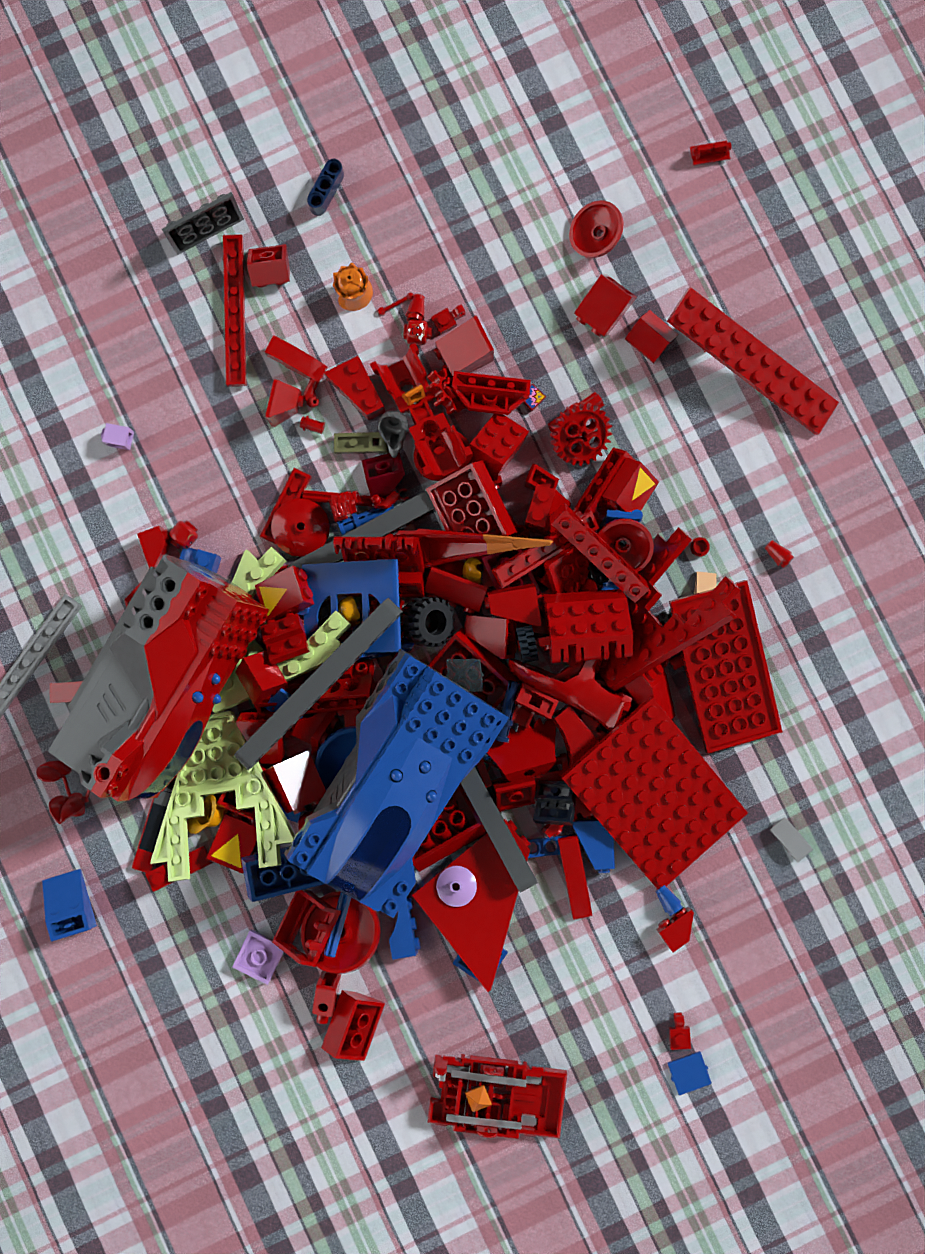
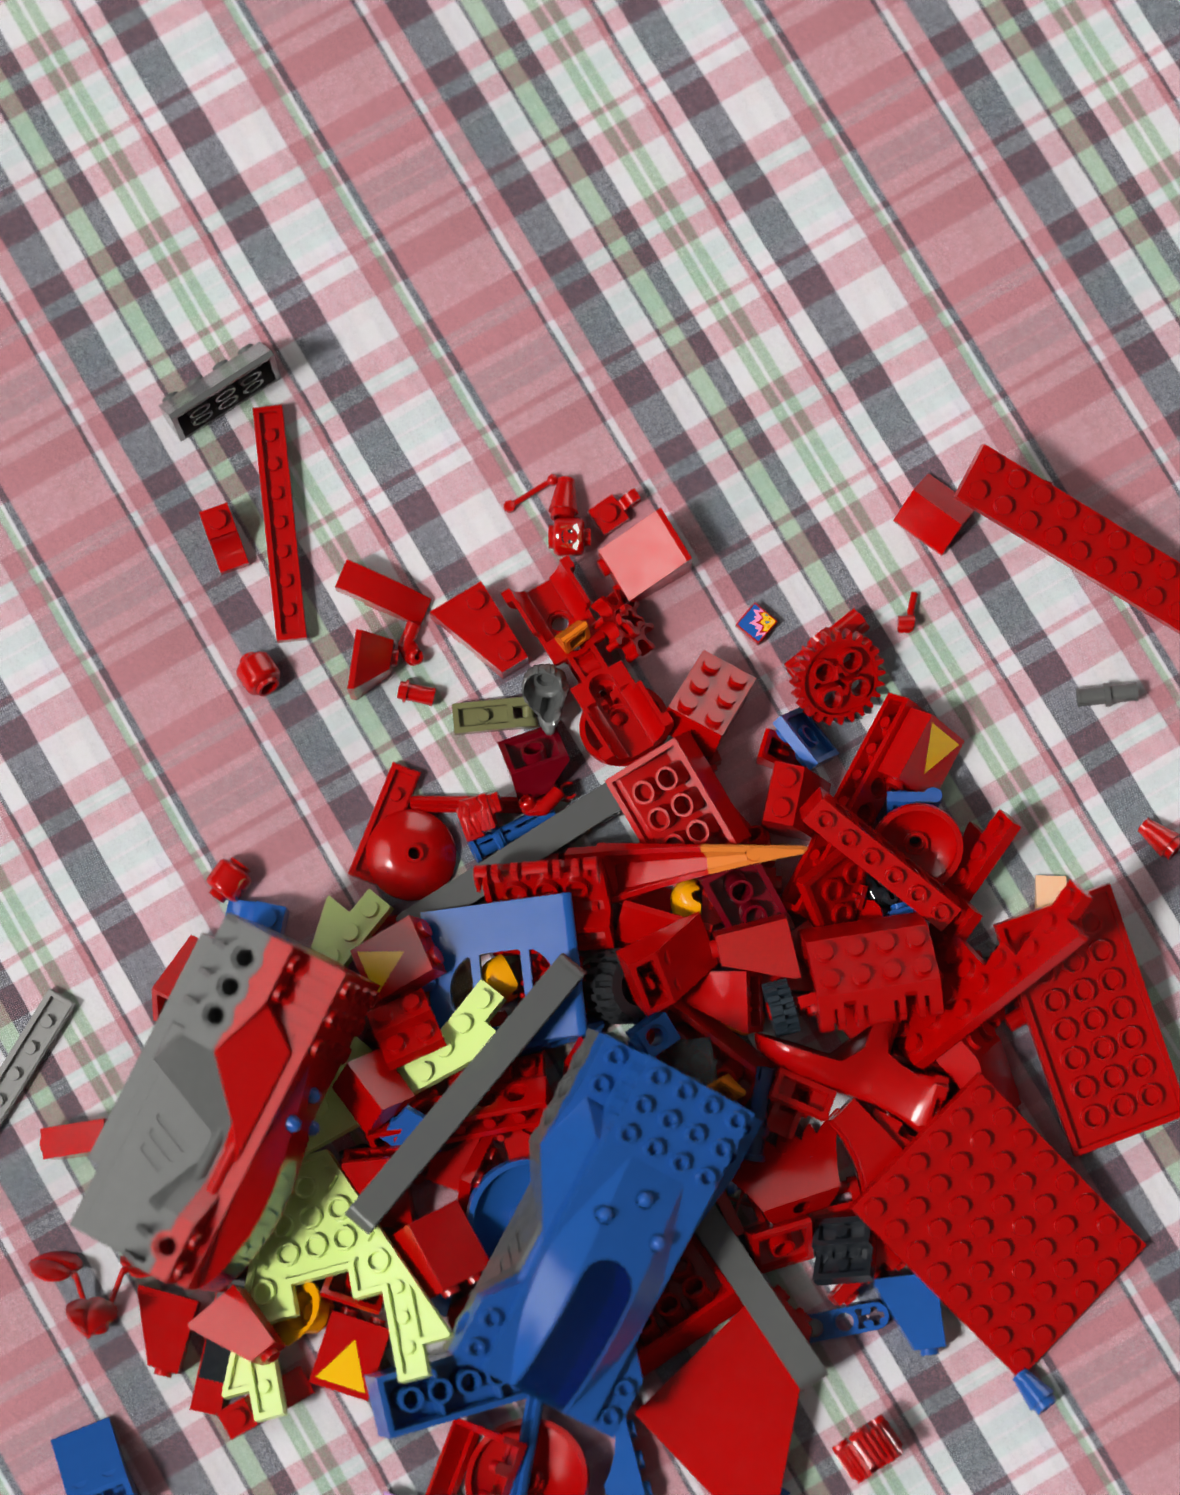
camera: 10 degrees left, 5 degrees down
(117, 436) = (112, 734): lavender brick -> none
(120, 820) = (166, 1328): none -> red slope
(154, 544) = (185, 900): red slope -> none
(164, 821) = (239, 1326): none -> slope
(198, 316) = (224, 538): none -> red arch
(213, 404) = (258, 673): none -> red head
(268, 265) = (327, 449): red slope -> none
(325, 178) = (406, 334): dark blue beam -> none
(352, 287) = (462, 475): orange hat -> none
(450, 652) = (663, 1030): none -> blue brick
(456, 609) = (667, 963): none -> red slope
(467, 884) = (706, 1409): lavender dish -> none
(486, 693) = (727, 1087): none -> orange slope
(490, 392) = (691, 623): red wedge -> none
(533, 557) = (780, 873): red tile -> none
(557, 472) = (805, 738): none -> blue plate
(560, 930) = (868, 1449): none -> red brick
(575, 877) = (885, 1365): red slope -> none
(590, 223) = (820, 353): red dish -> none
(604, 305) = (857, 472): red slope -> none
(627, 404) = (906, 623): none -> red hand
(677, 930) = (1052, 1436): red slope -> none
(699, 547) = (1036, 836): red plate -> none
(710, 152) = (1002, 221): red hinge -> none
(752, 459) = (1107, 694): none -> dark grey pin

